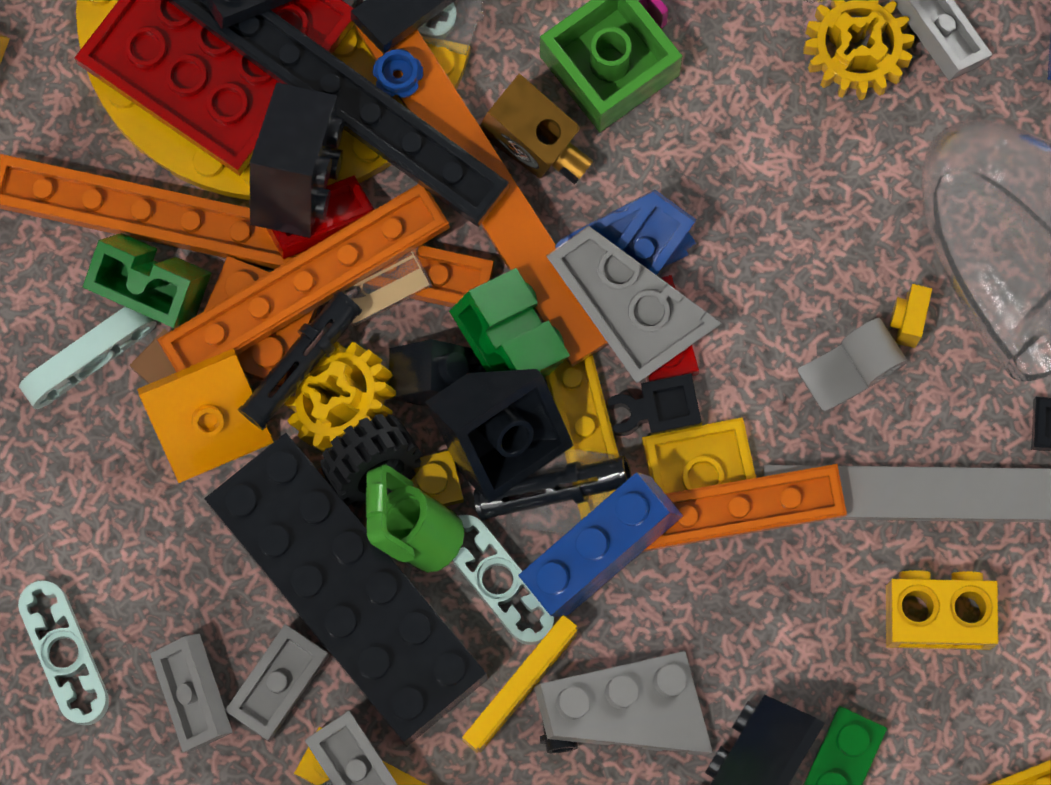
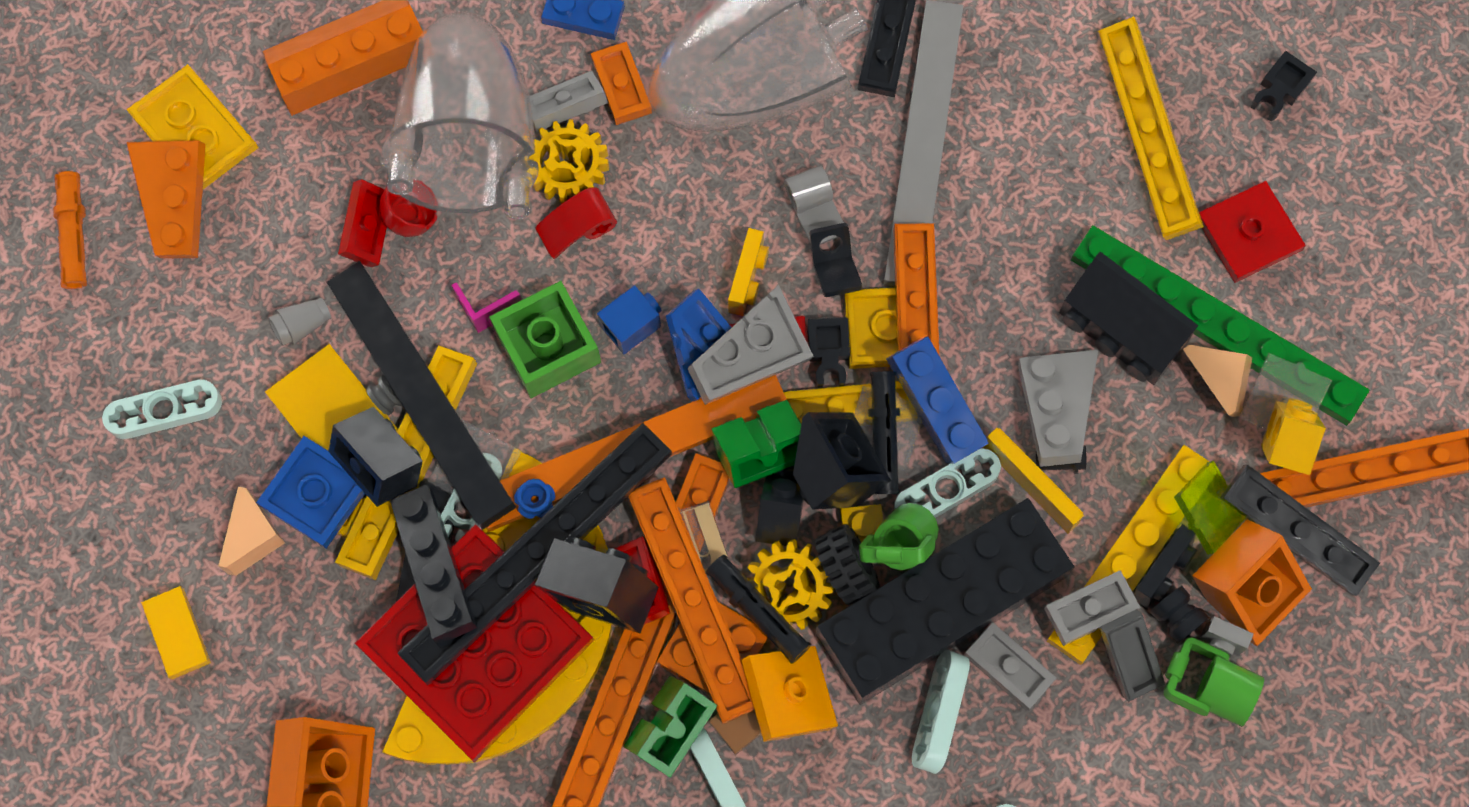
camera: 80 degrees left, 5 degrees down
(191, 692) = (1011, 734): light grey plate -> none
(209, 602) = (940, 711): none -> light aqua beam
(520, 116) = (596, 405): pearl gold torso -> none
(658, 155) = (630, 319): none -> blue brick
(724, 287) = (753, 256): none -> yellow plate
(772, 399) = (834, 267): none -> black bracket
(784, 71) = (579, 216): none -> red panel
(910, 315) = (785, 157): yellow plate -> none
(942, 626) = (1017, 174): yellow brick -> none
(983, 91) = (621, 83): none -> orange plate

